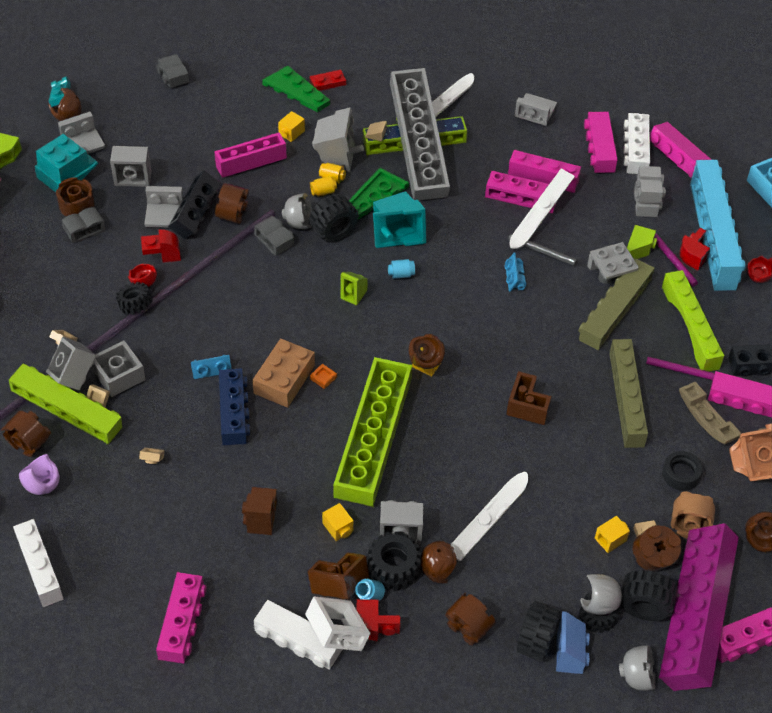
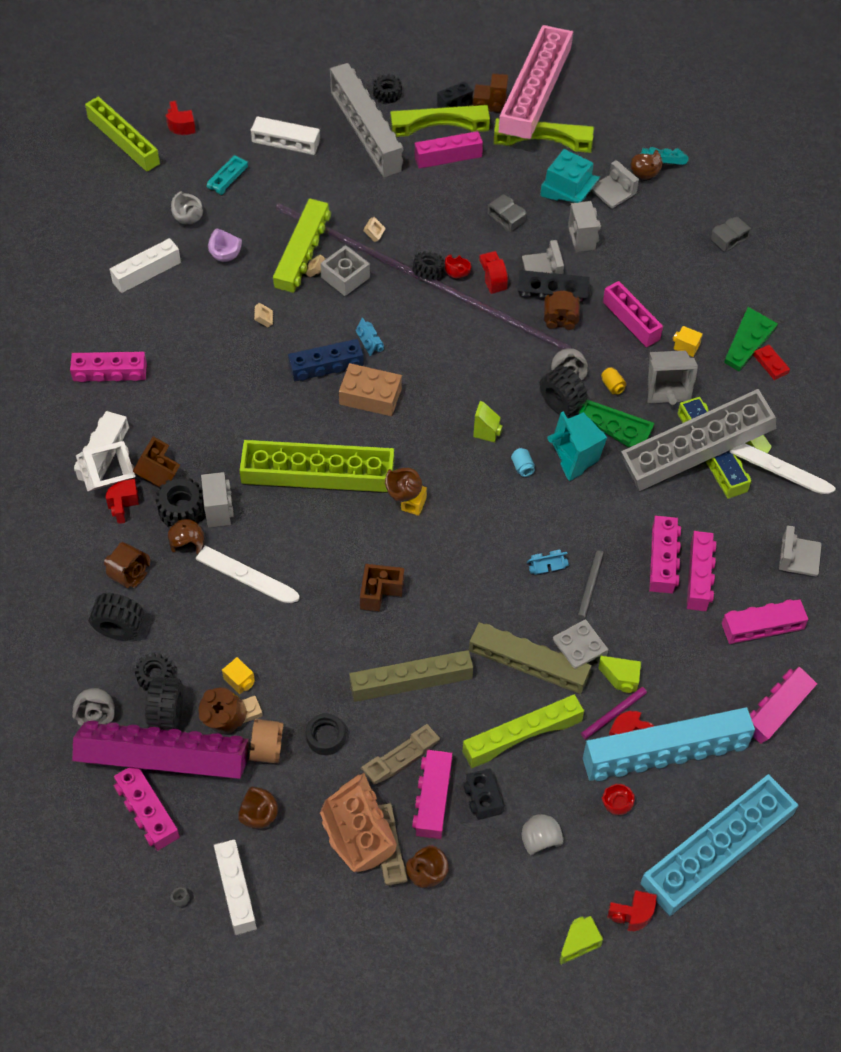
camera: 80 degrees right, 5 degrees up
(25, 432) = (263, 225): reddish brown brick -> none
(70, 363) = (335, 234): light grey hinge -> none
(74, 196) = (534, 197): reddish brown brick -> none
(260, 510) = (215, 399): reddish brown brick -> none
(274, 235) = (536, 353): dark grey brick -> none
(323, 376) = (379, 423): orange tile -> none
(335, 171) = (635, 385): yellow brick -> none
(337, 522) = (216, 457): yellow brick -> none
(370, 589) = (147, 488): medium azure brick -> none
(377, 131) = (695, 407): tan slope -> none
(541, 209) = (636, 570): white piece -> none
(571, 645) = (111, 647): medium blue slope -> none
(605, 595) = (153, 658): light grey piece -> none
(637, 142) = (777, 660): white brick -> none
(649, 191) = (696, 671): light grey brick -> none
(680, 368) = (460, 732): magenta bar -> none

